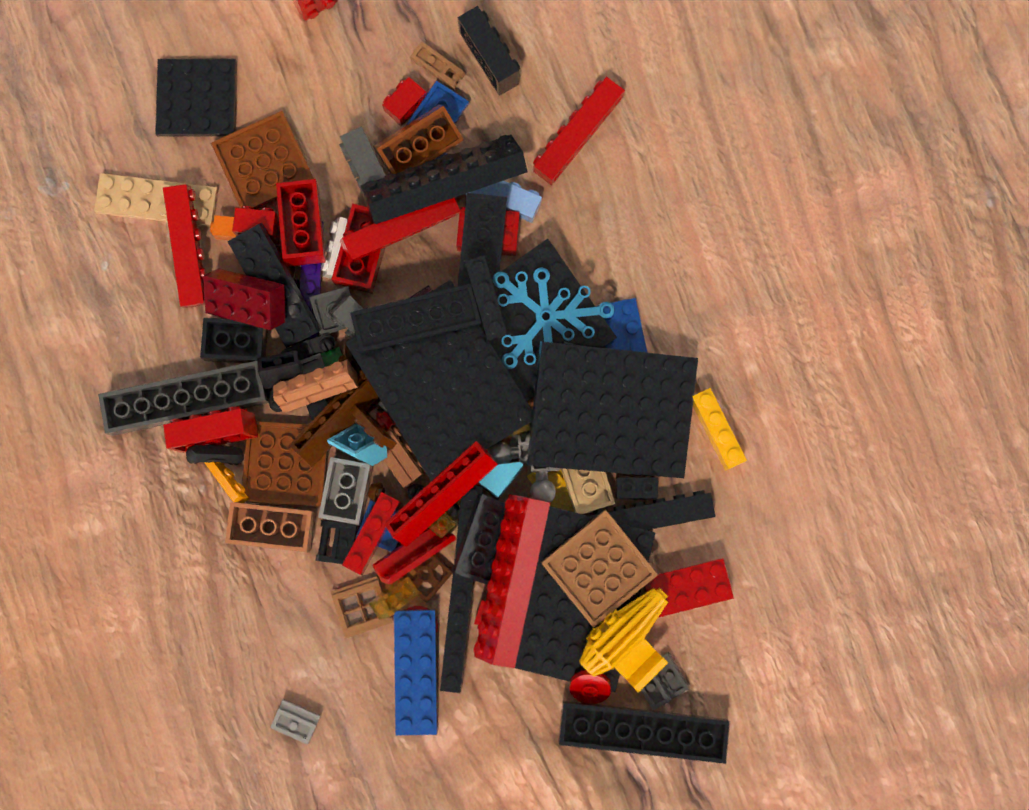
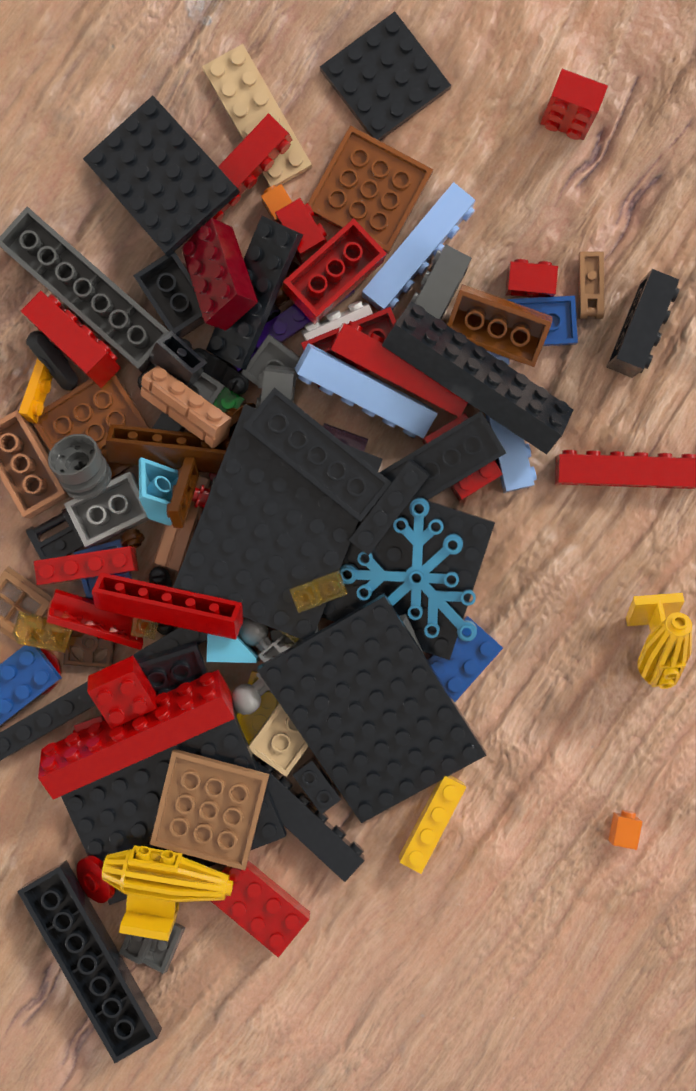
camera: 55 degrees right, 5 degrees up
(147, 290) = (161, 175): none -> black plate
(302, 486) = (79, 466): none -> dark grey wheel
(327, 159) = (418, 248): none -> light blue brick
(395, 260) = (364, 390): none -> light blue brick
(476, 566) = (121, 692): none -> red brick
(506, 385) = (318, 591): none -> clear yellow slope
(708, 183) = (669, 639): none -> yellow piece
(815, 305) = (625, 830): none -> orange brick

